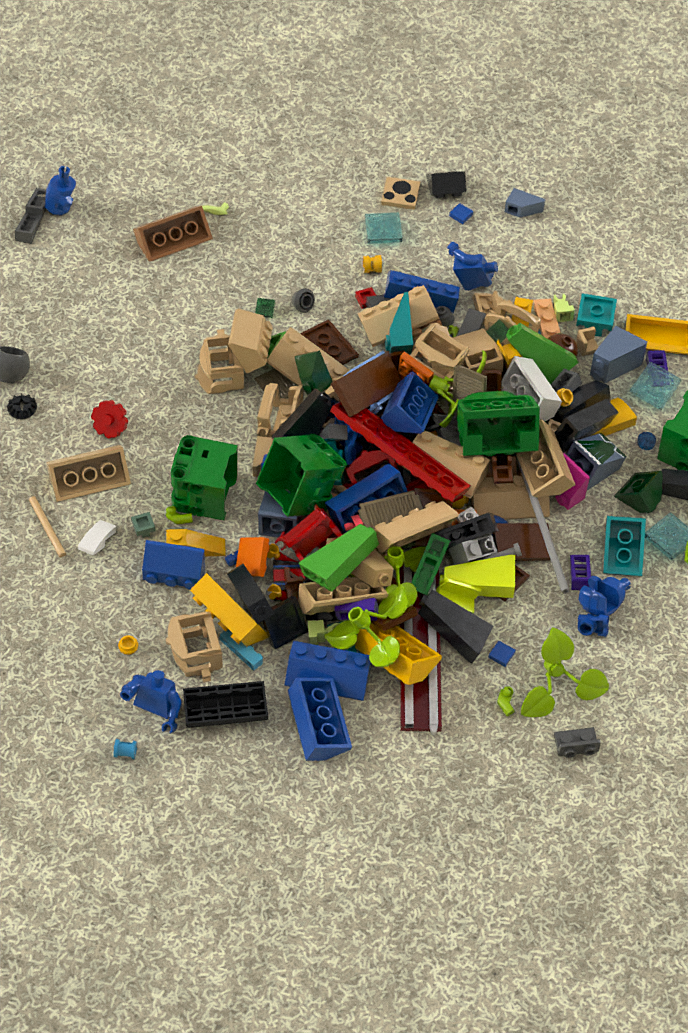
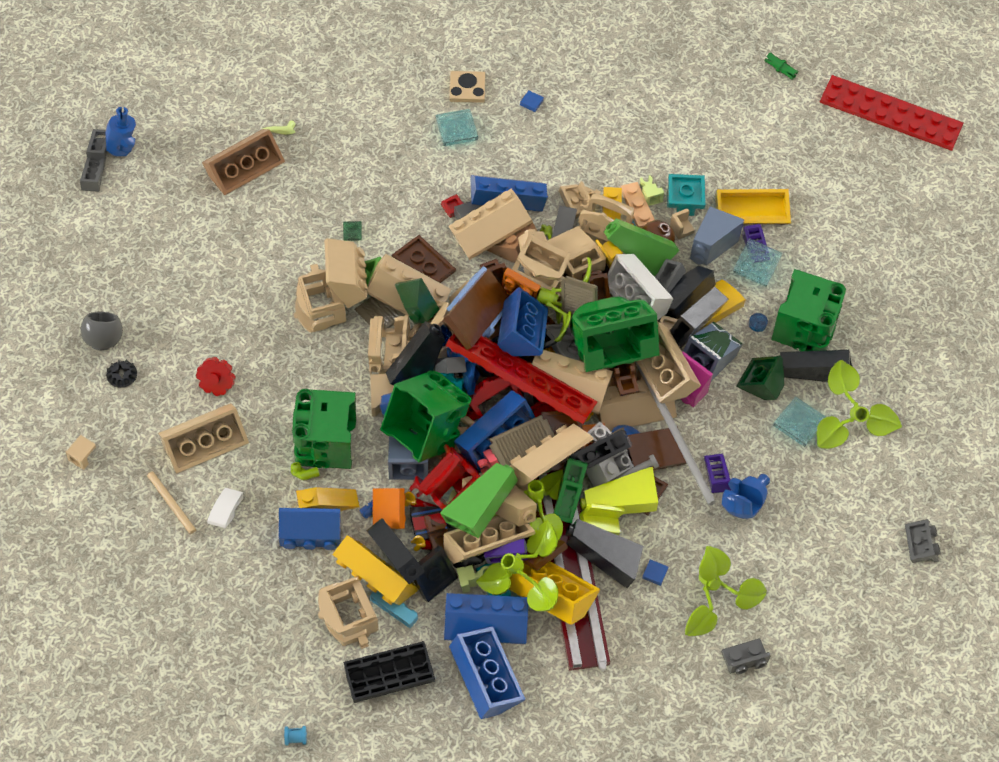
camera: 10 degrees left, 5 degrees up
(128, 645) = (278, 620): yellow plate -> none
(143, 524) = (270, 487): sand green tile -> none
(154, 695) = (316, 673): blue torso -> none
(303, 300) = (390, 217): dark grey cone -> none
(376, 264) = (452, 168): yellow wheel -> none
(400, 331) = (498, 245): teal slope -> none
(445, 316) = (536, 215): dark grey cone -> none
(447, 183) = (512, 70): black slope -> none
(471, 269) = (554, 163): blue torso -> none
(498, 331) = (594, 229): clear green plate -> none
(504, 700) = (665, 622): lime arm -> none
(523, 204) = (593, 83): sand blue slope -> none
(566, 396) = (673, 289): yellow plate -> none
(589, 623) = (737, 527): blue plate -> none
(624, 545) = (756, 439): teal slope -> none

